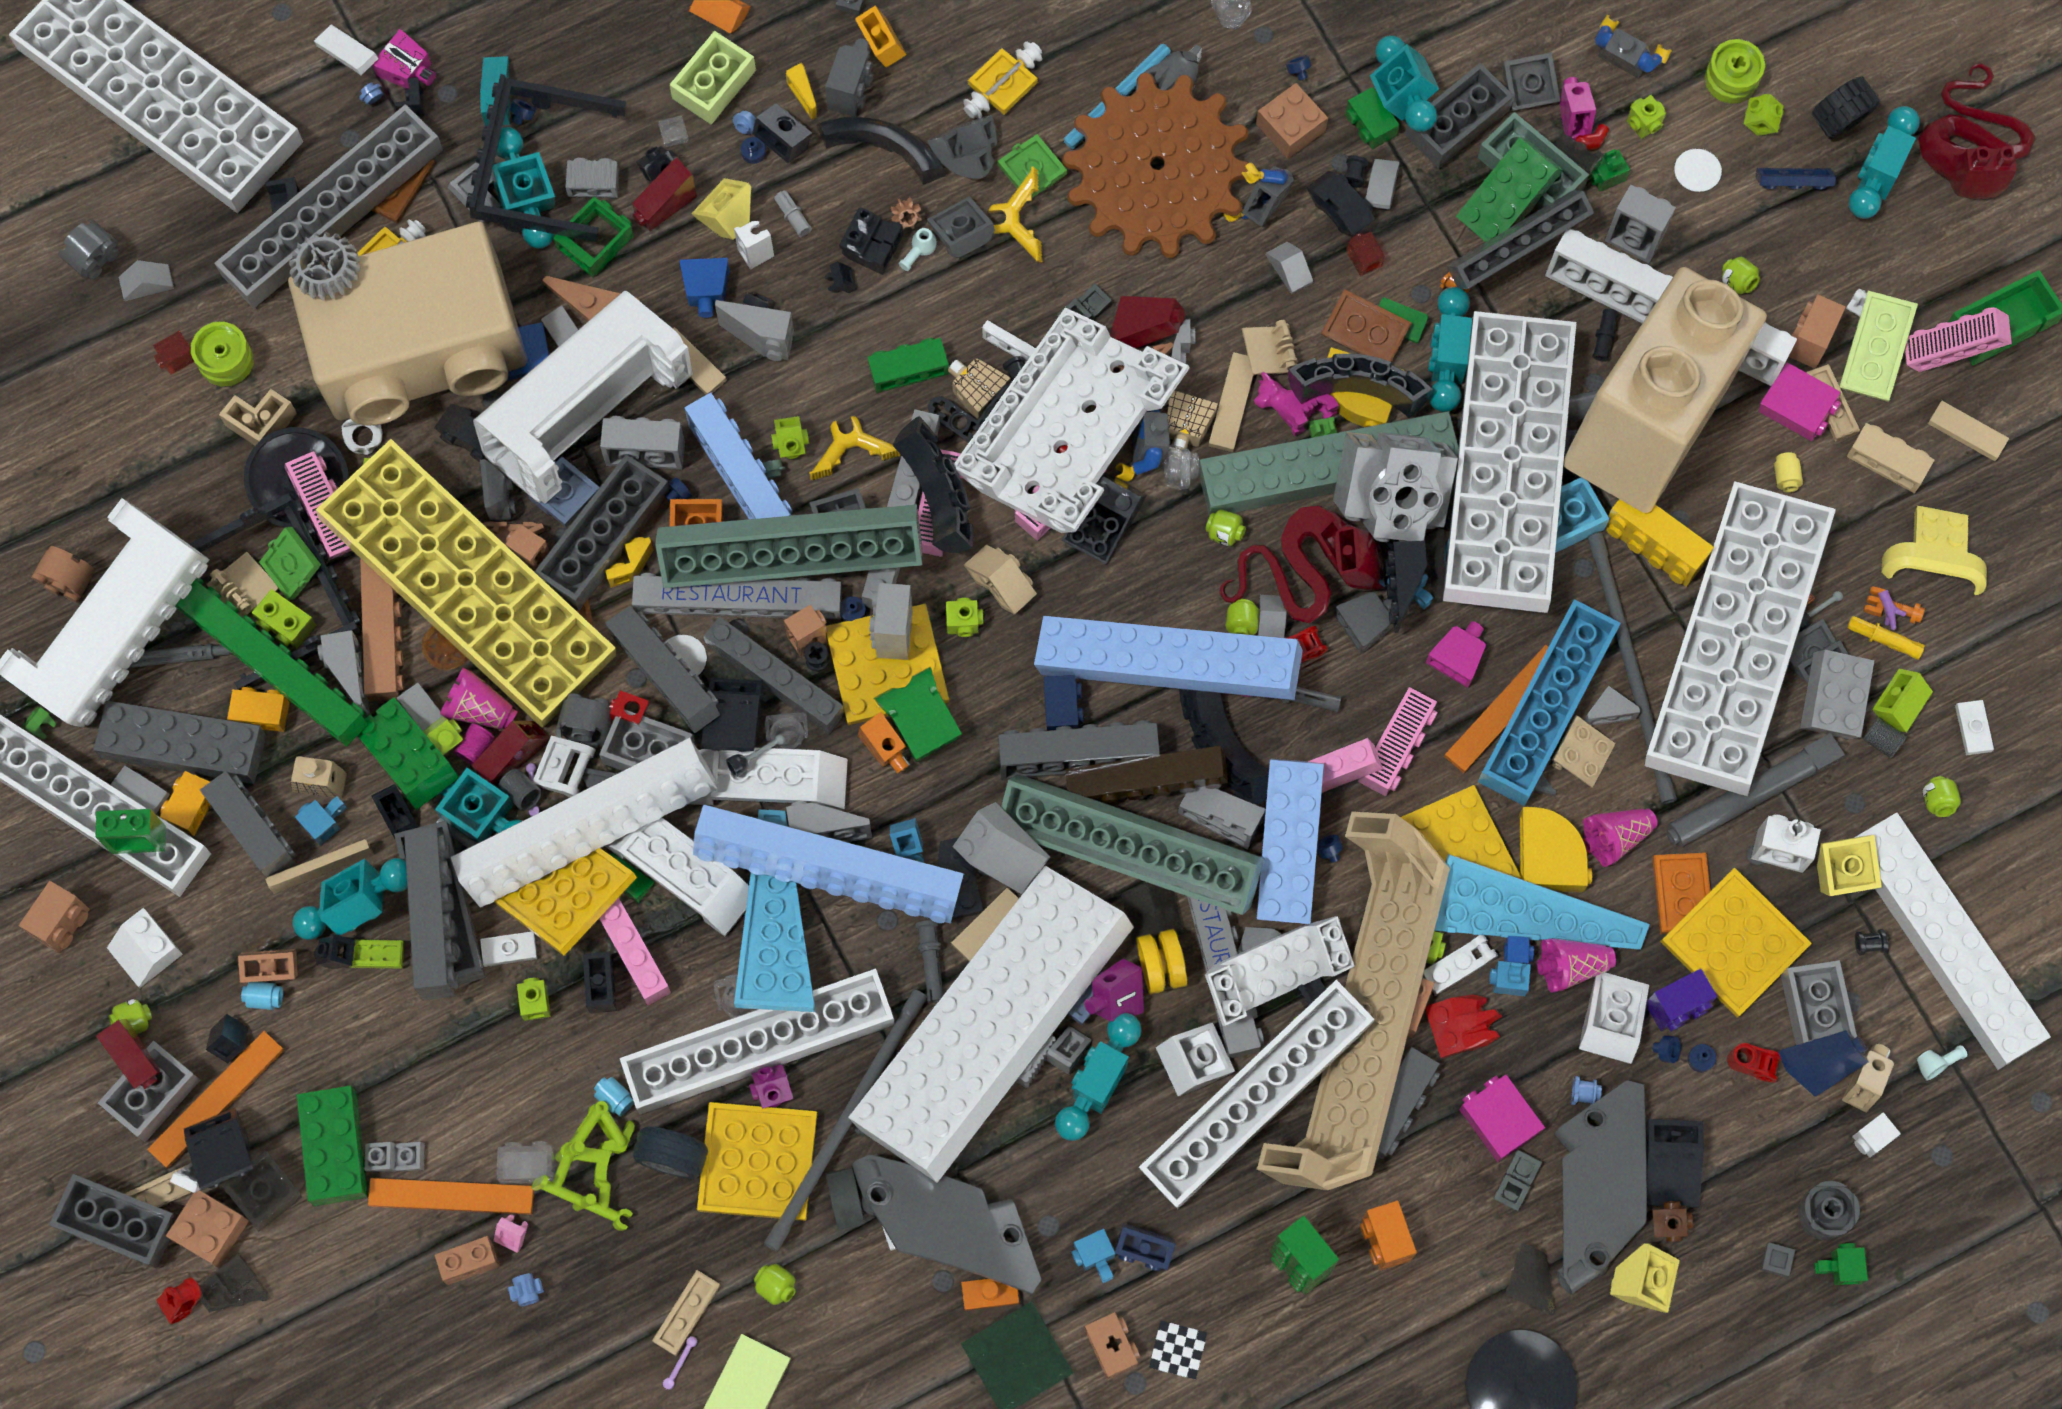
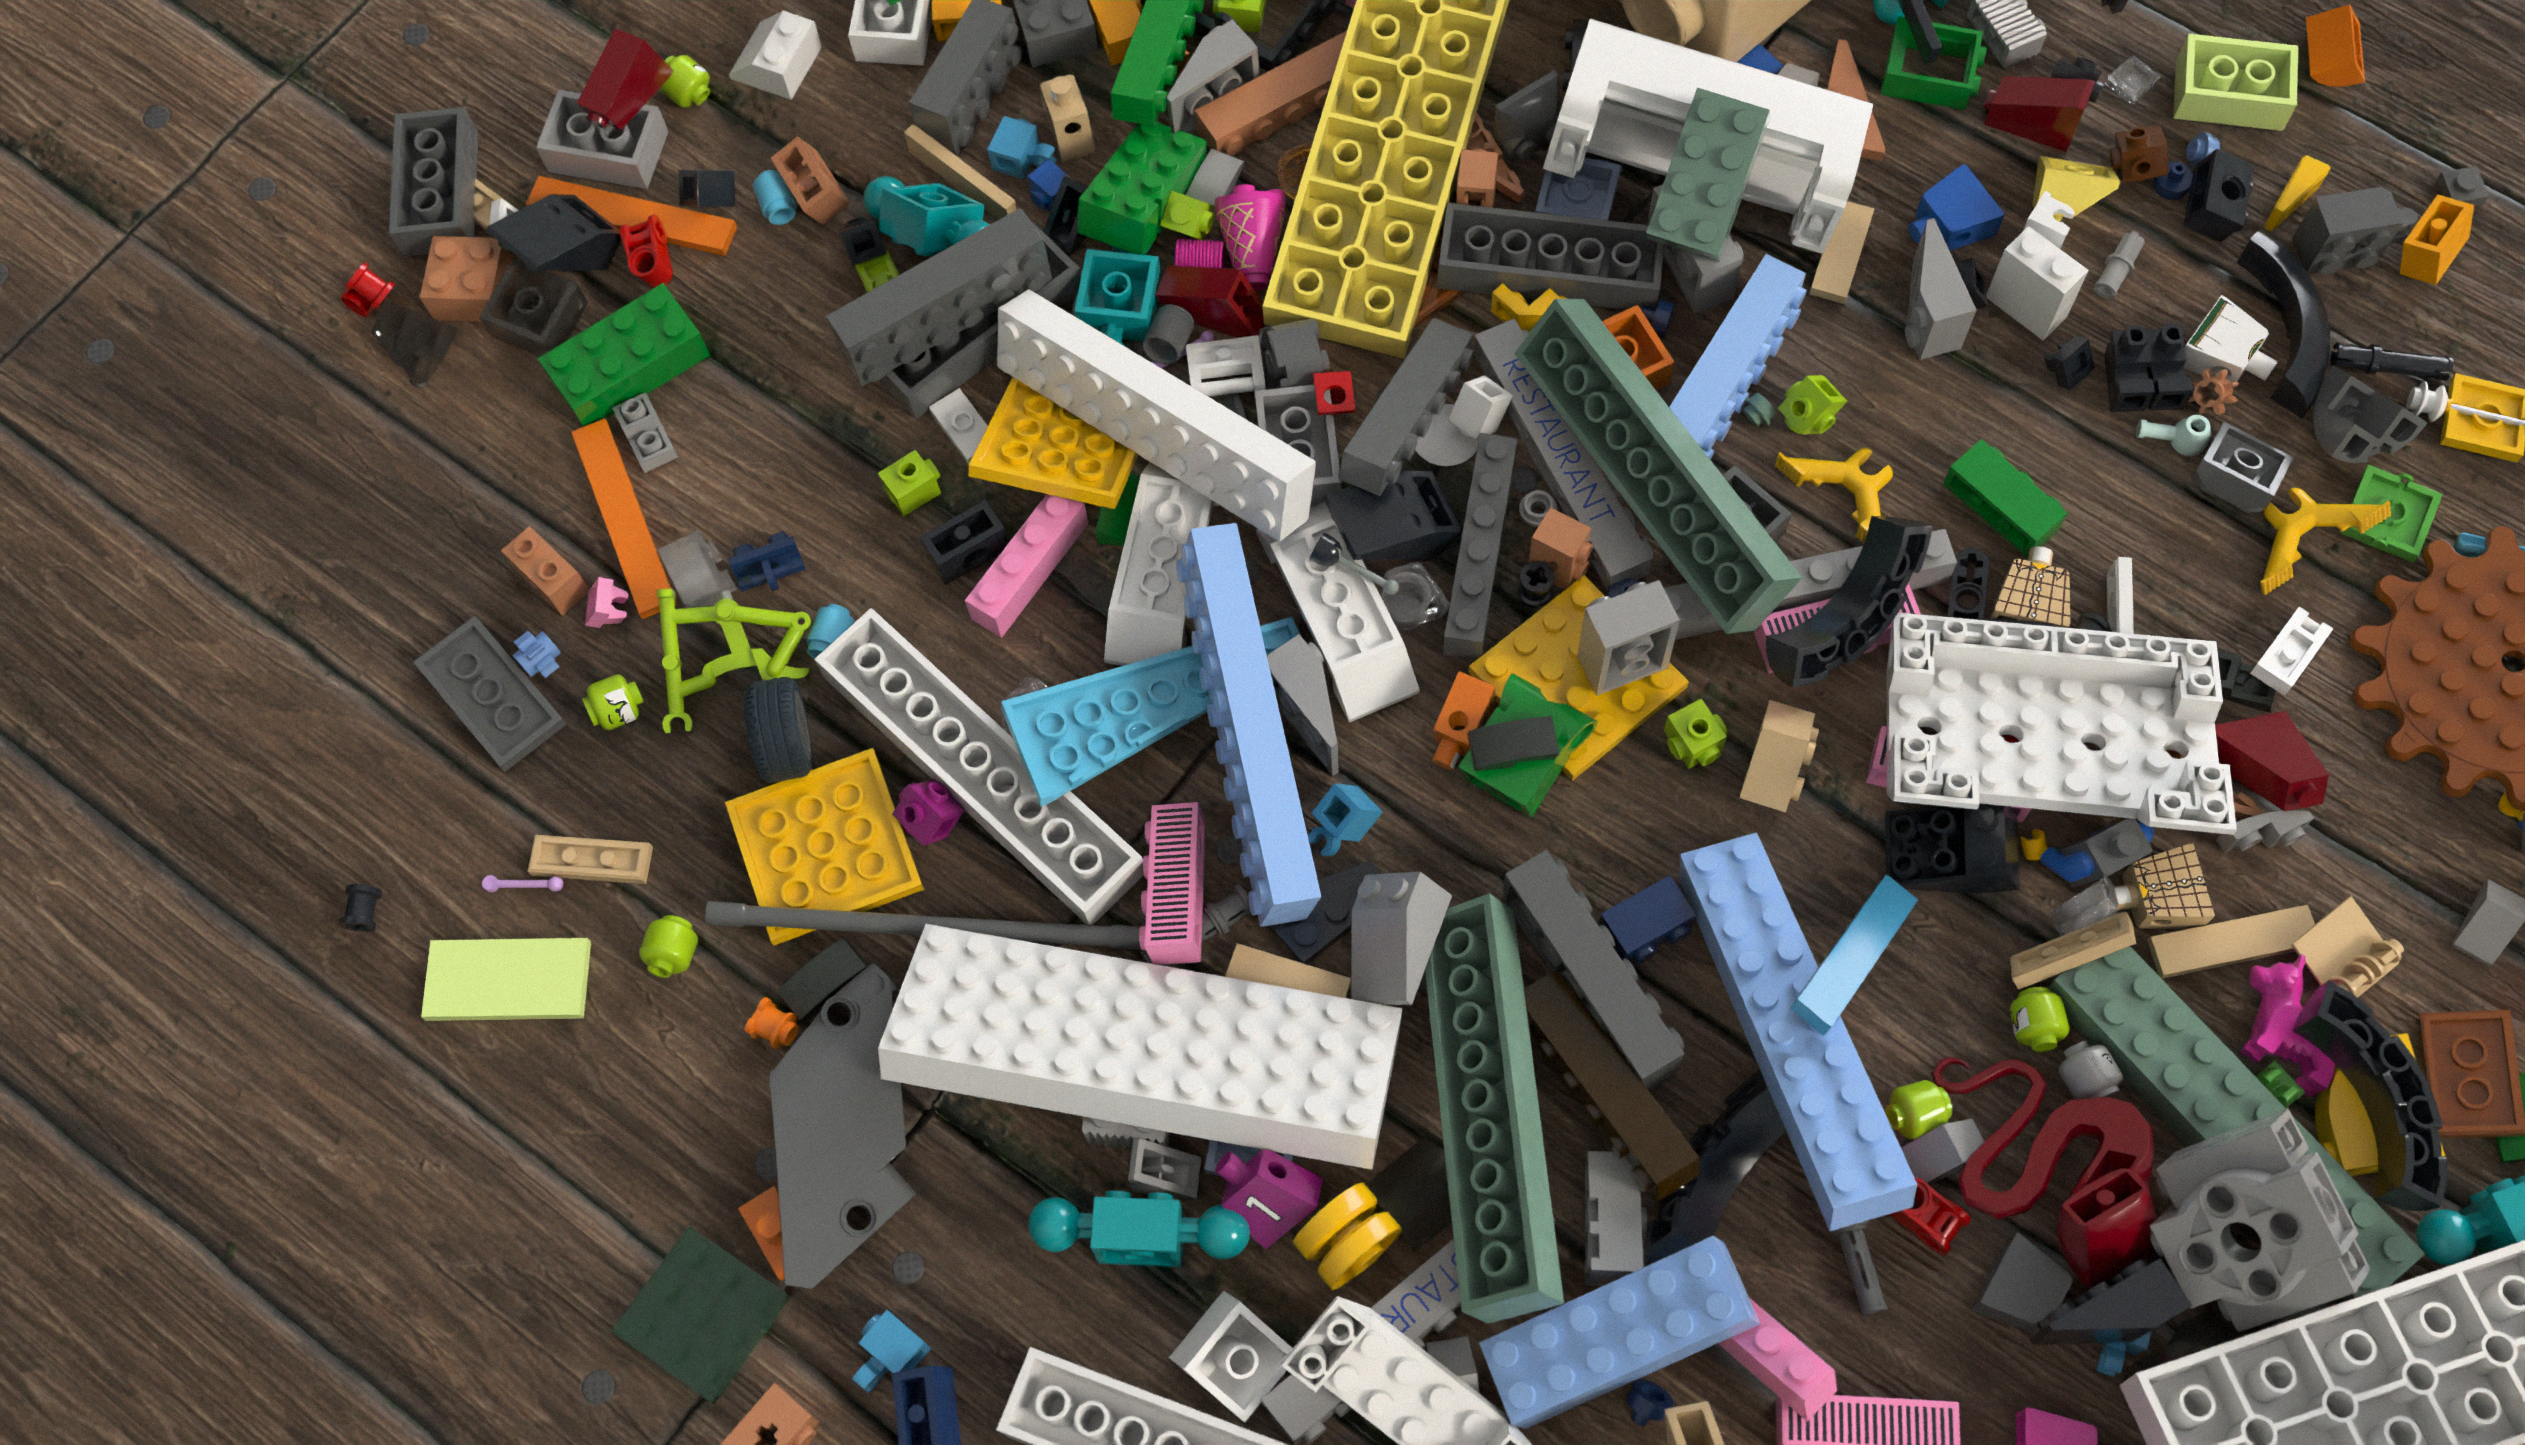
camera: 70 degrees right, 5 degrees down
(255, 1097) = (645, 245): none -> red piece
(364, 813) = (1045, 184): none -> blue plate
(534, 1332) = (490, 693): none -> dark grey plate
(543, 1115) = (766, 563): none -> dark blue hips
(588, 1253) = (612, 702): none -> lime head
(625, 411) = (1708, 174): none -> sand green brick
(683, 627) = (1480, 407): none -> white brick
(729, 158) = (2140, 154): none -> reddish brown brick
(765, 622) = (1535, 499): none -> light grey plate
(785, 268) = (2036, 283): none -> white brick
(860, 1240) = (772, 1024): none -> orange brick
(880, 186) = (2229, 342): none -> white torso
(898, 958) = (1174, 884): none -> bright pink brick
(922, 719) = (1513, 742): none -> pearl dark grey slope
(934, 115) = (2377, 359): none -> black pin
(1087, 270) = (2291, 651): none -> white plate
(1145, 601) = (1853, 955): none -> tile
(1199, 488) = (2072, 950): none -> tan tile
(1268, 519) = (2090, 1071): none -> light grey head

